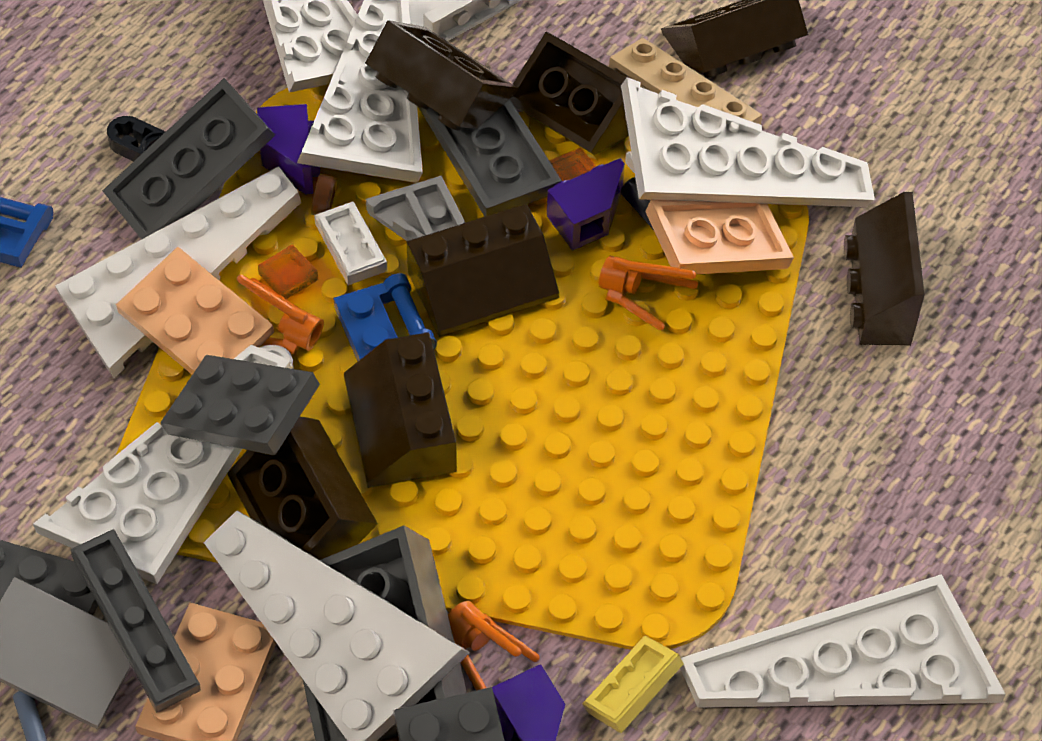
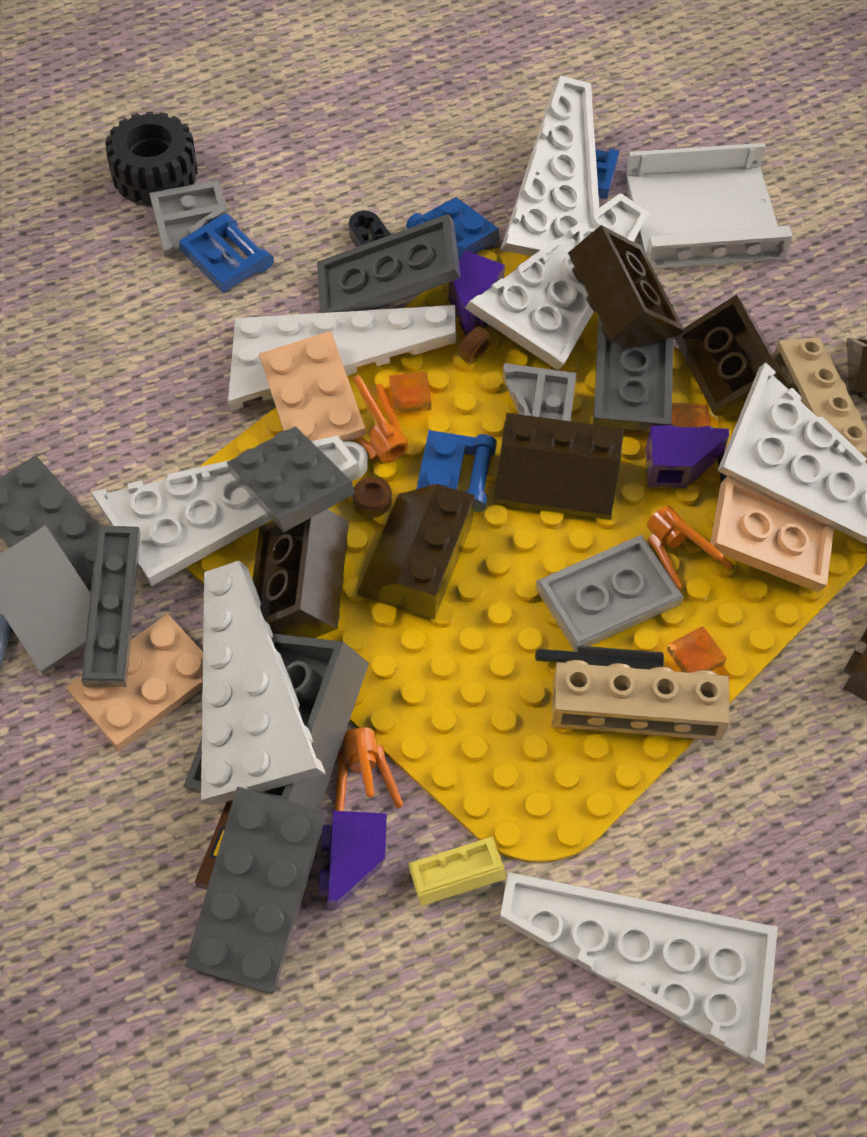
camera: 30 degrees right, 5 degrees up
(251, 85) = (471, 228): none -> blue plate
(329, 391) = (372, 497): none -> reddish brown tile
(350, 243) = (471, 393): white plate -> none
(603, 364) = (608, 593): none -> light grey tile
(644, 423) = (604, 657): none -> black axle
(697, 443) = (640, 700): none -> tan brick
(718, 377) = (696, 652): none -> clear orange tile

